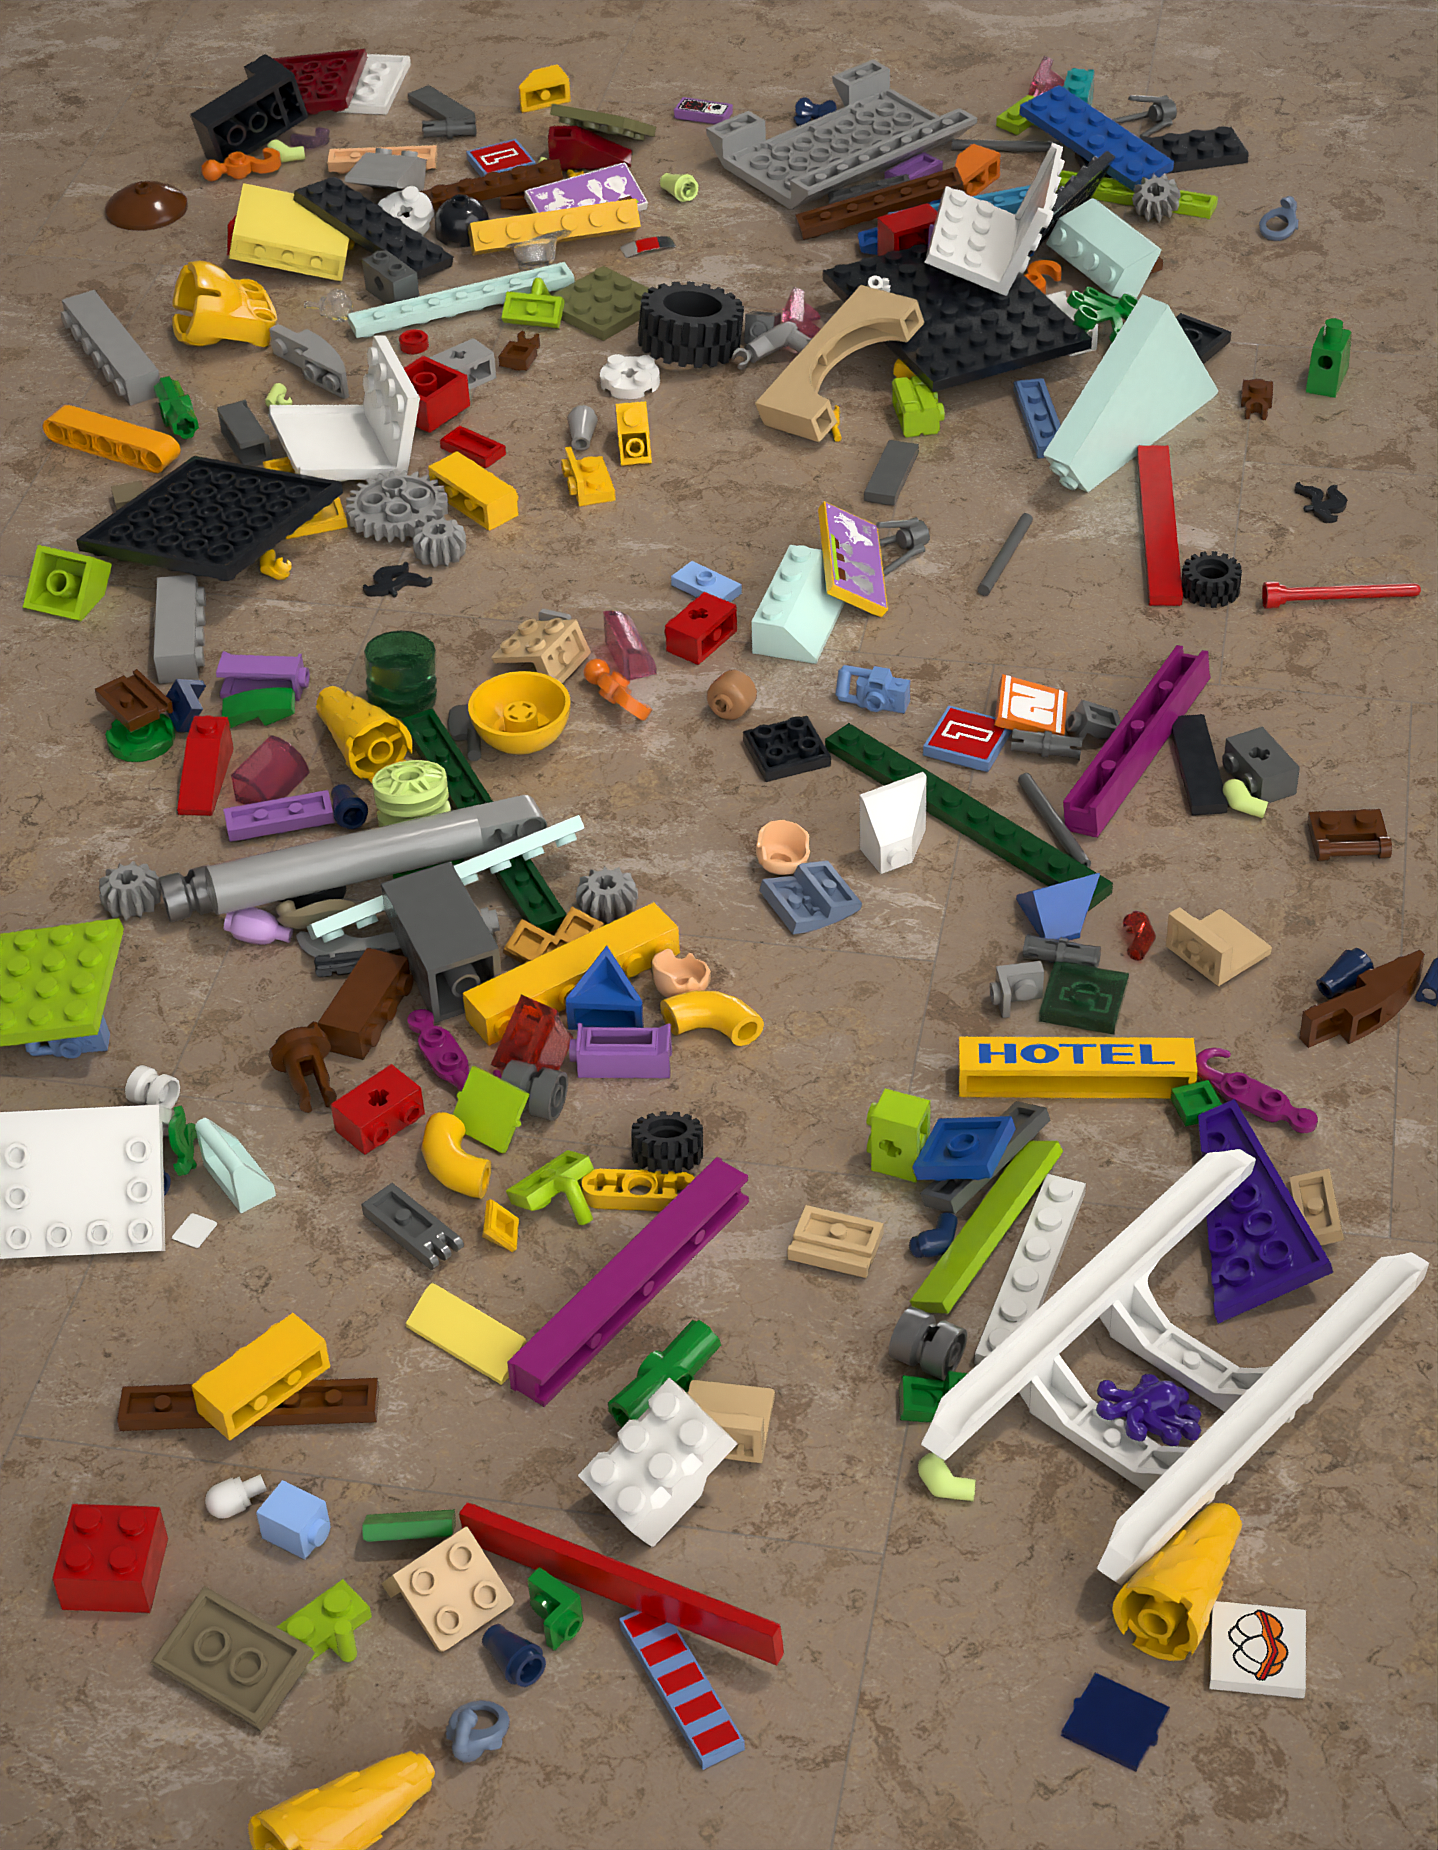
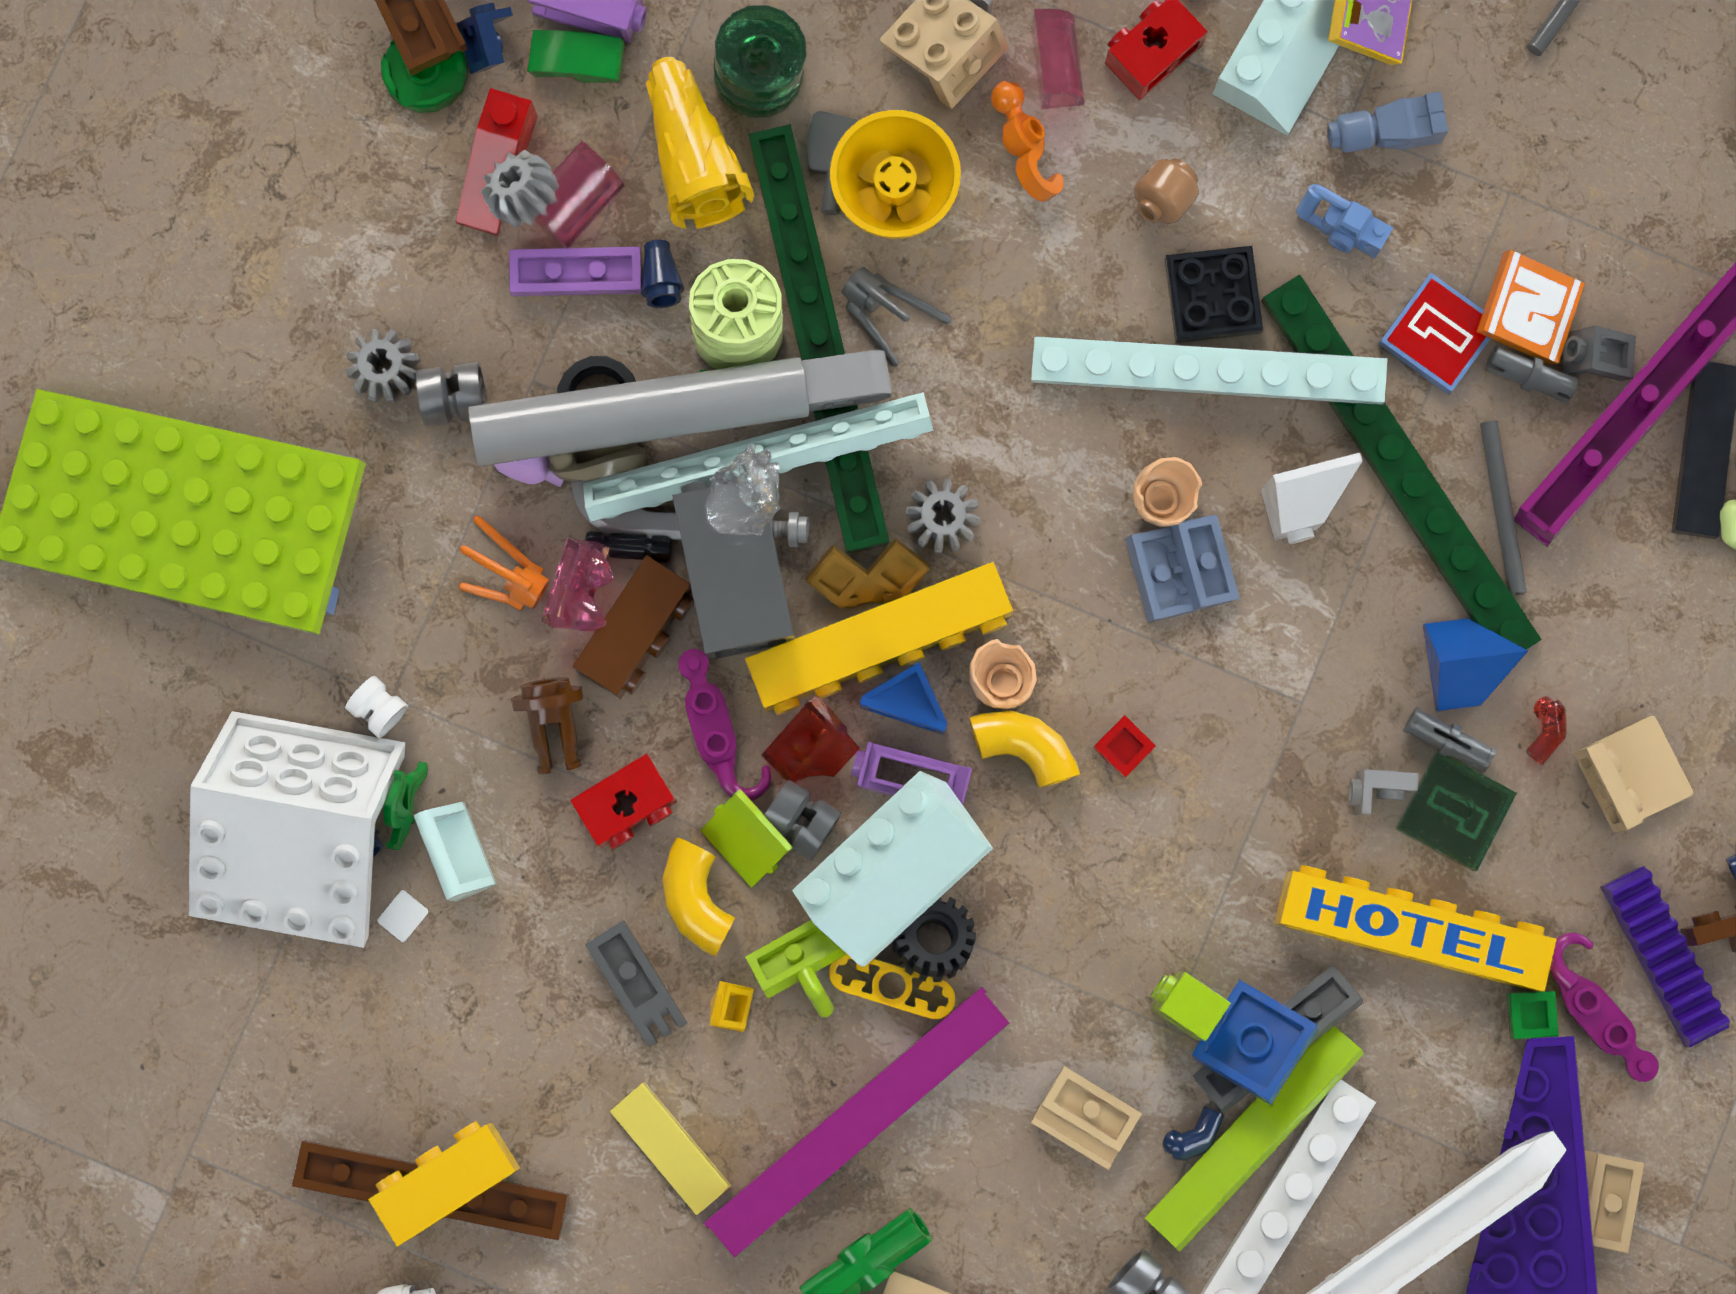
camera: 10 degrees right, 40 degrees up
(227, 756) = (520, 189): none -> light grey gear
(266, 994) = (525, 584): none -> orange plant
(311, 979) = (578, 576): none -> clear pink tile
(440, 858) = (744, 494): none -> clear hair
(514, 783) = (870, 292): none -> dark grey plant
(616, 1083) = (893, 868): none -> light aqua slope
(794, 780) = (1209, 370): none -> light aqua plate
(795, 1003) = (1124, 746): none -> red plate
(893, 637) = (1394, 126): none -> sand blue piece
(1294, 1051) = (1665, 956): none -> dark purple gear

